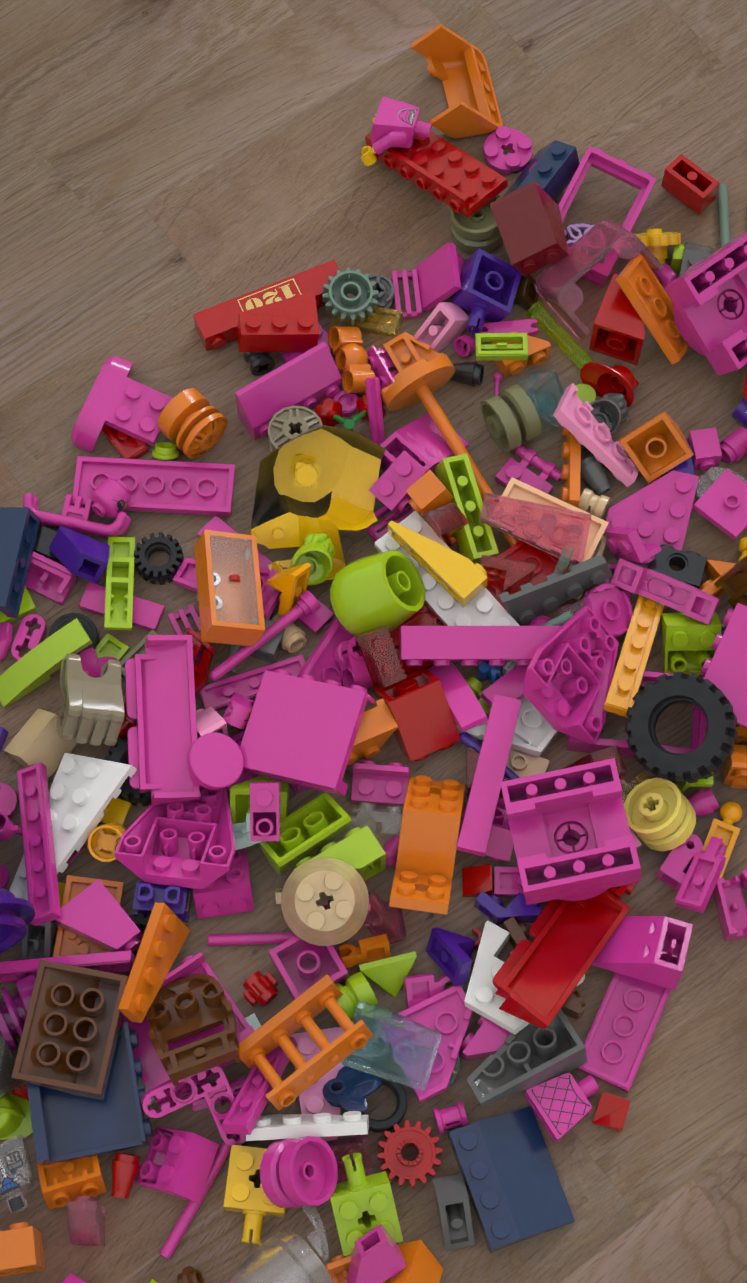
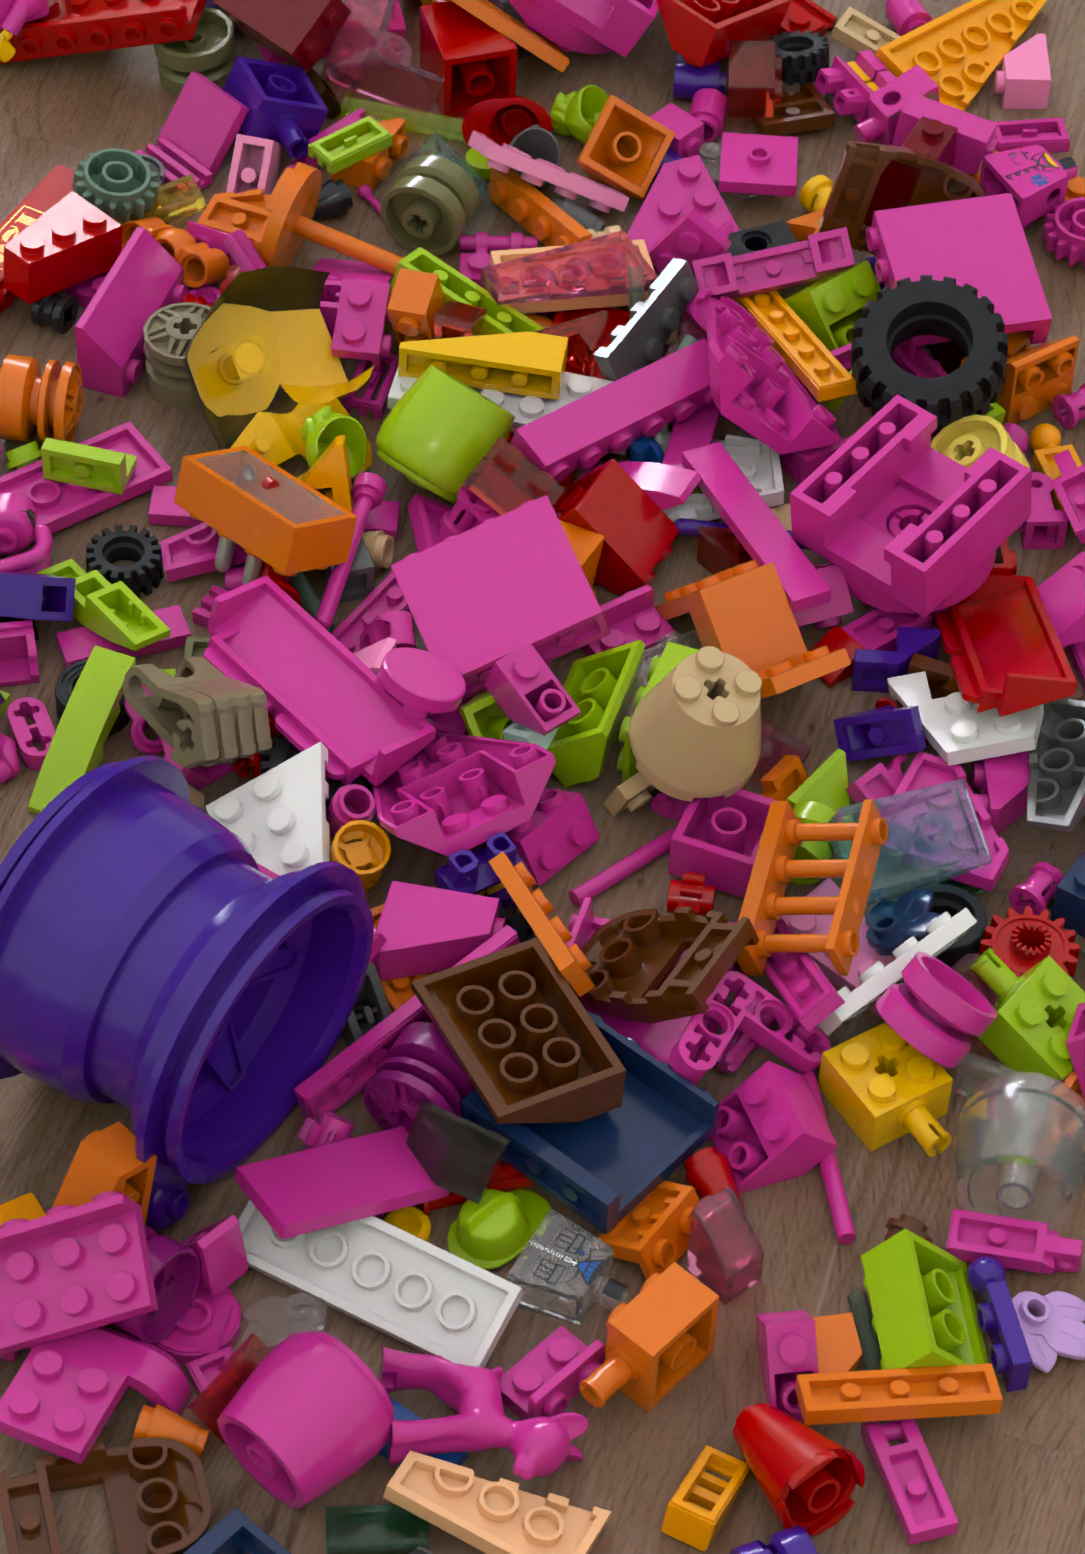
camera: 40 degrees left, 20 degrees down
(121, 820) = (349, 804): none -> dark pink brick
(186, 482) = (86, 465): none -> lime panel
(659, 398) = (578, 112): none -> lime hair

